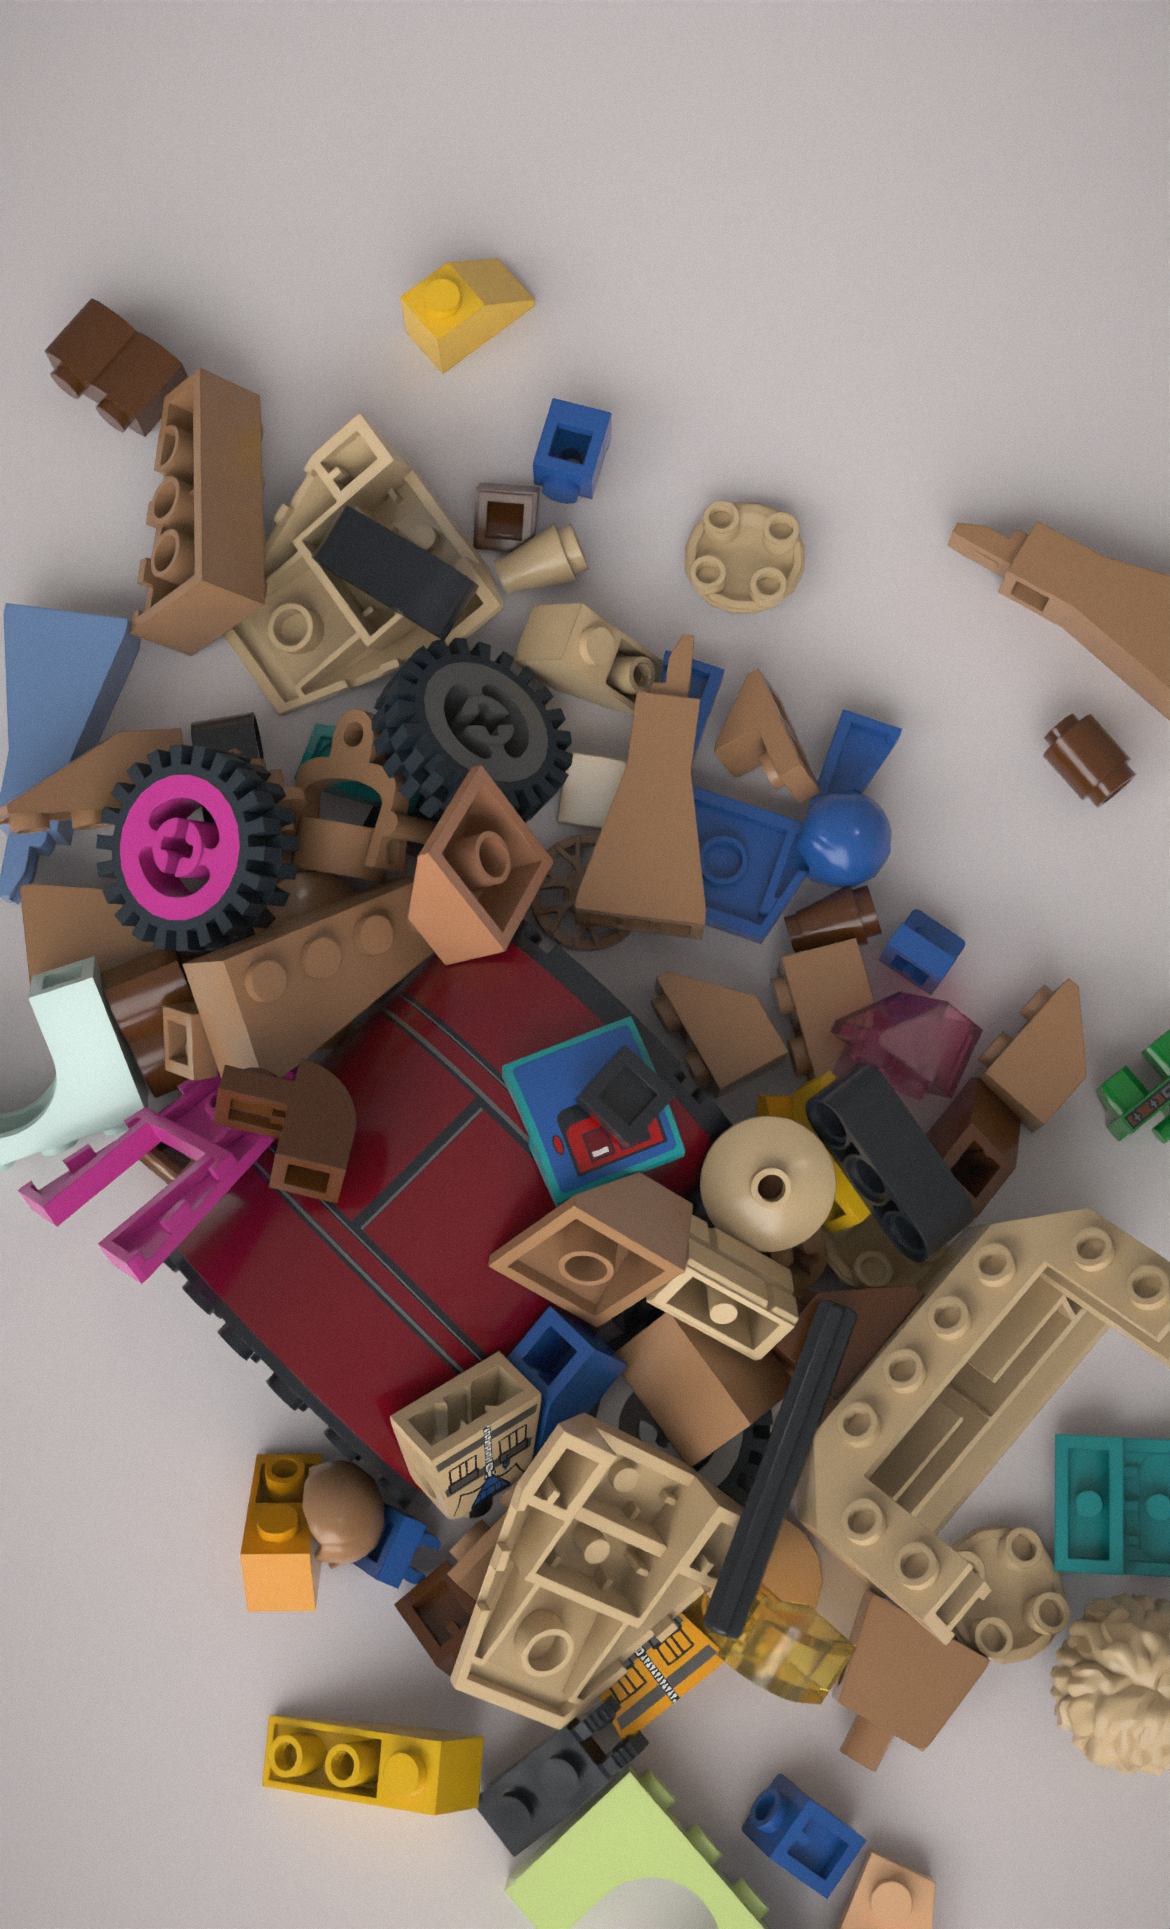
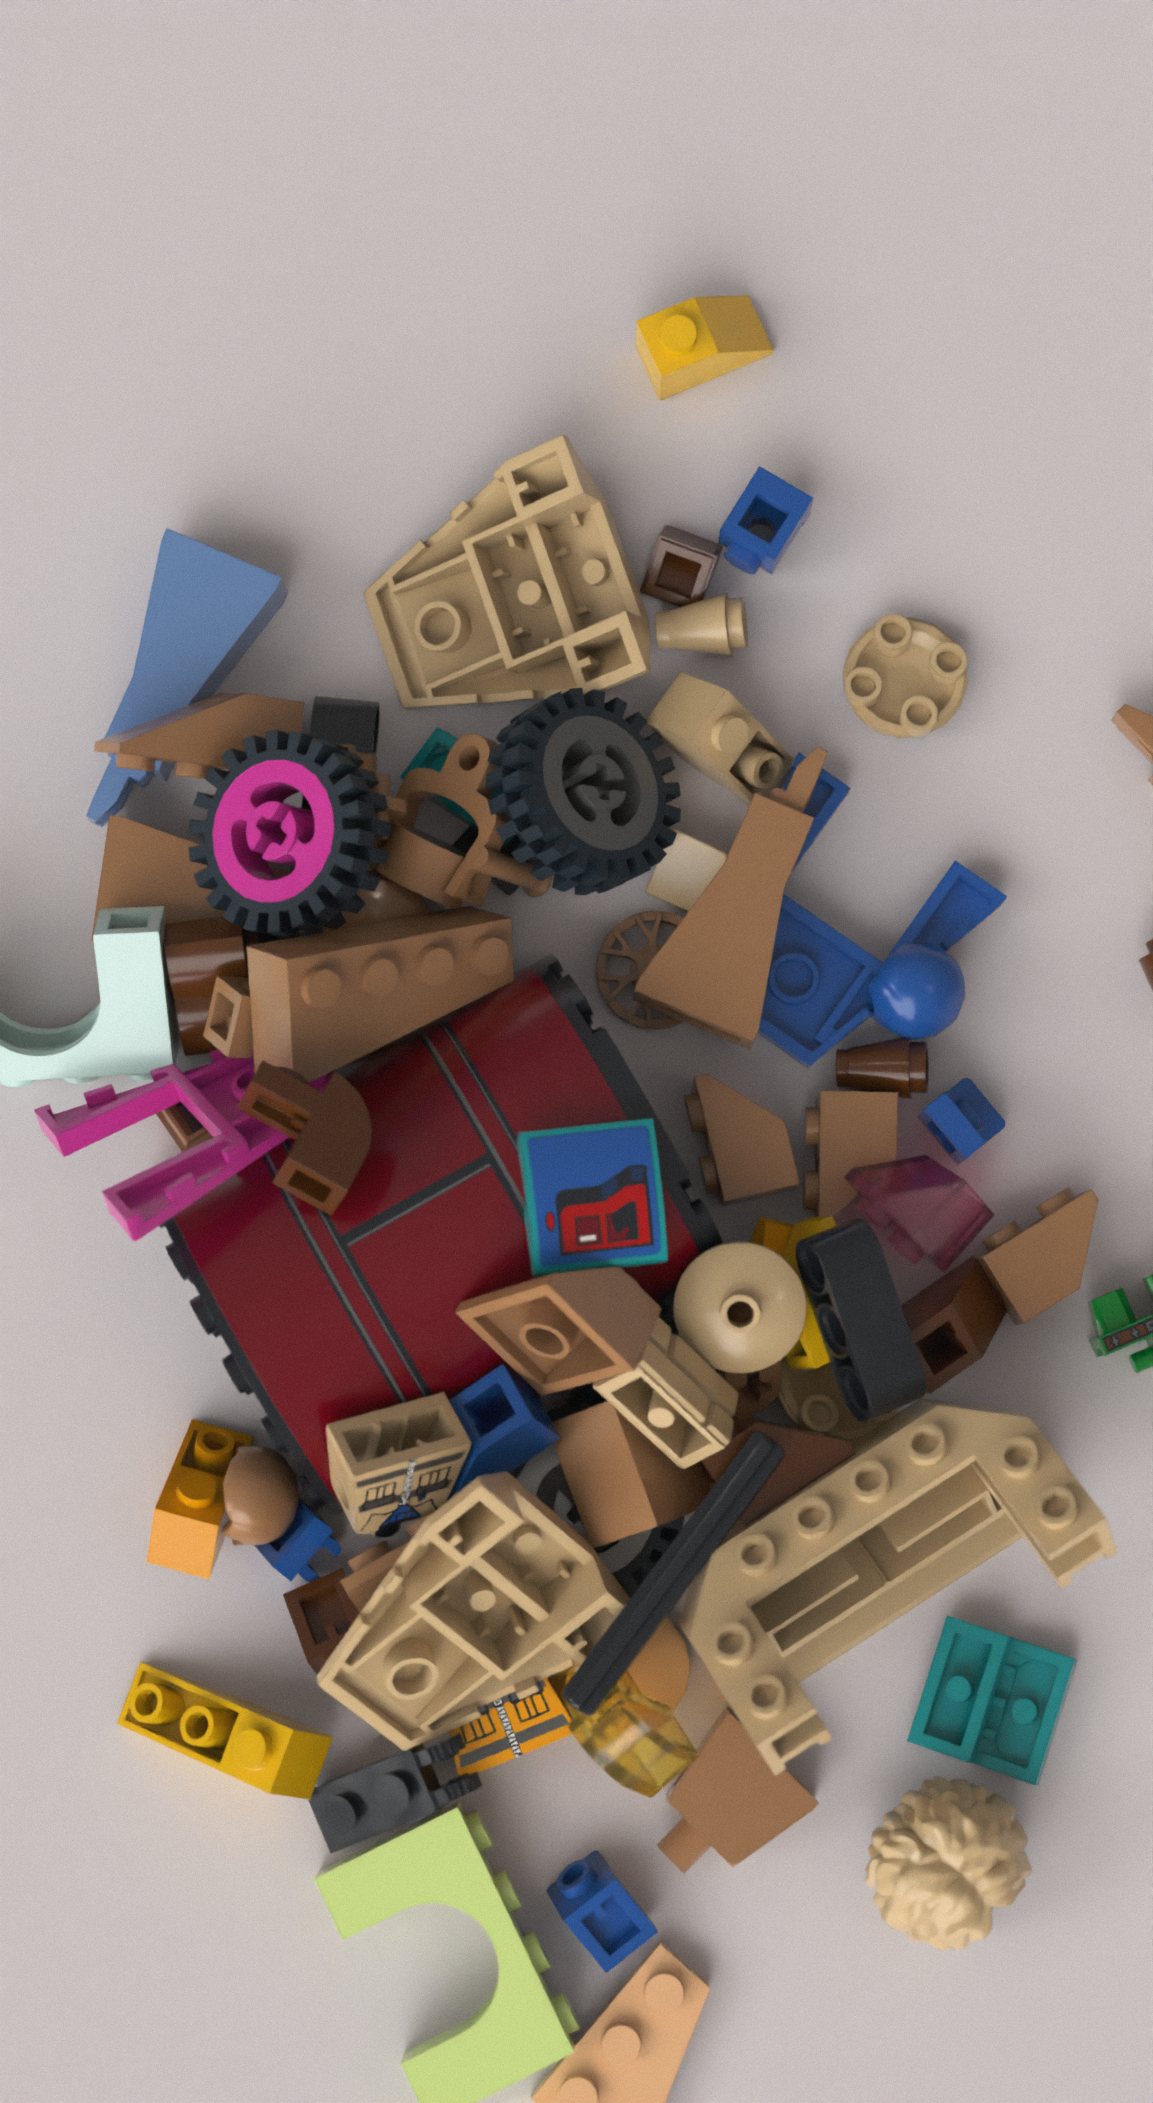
camera: 15 degrees right, 5 degrees up
(114, 367) = (336, 310): reddish brown brick -> none
(205, 516) = (385, 491): medium nougat wedge -> none
(395, 572) = (553, 608): black beam -> none
(476, 873) = (549, 936): nougat slope -> none
(625, 1096) = (624, 1194): black plate -> none
(763, 735) = (871, 865): medium nougat slope -> none
(1025, 1597) = (868, 1750): tan dish -> none

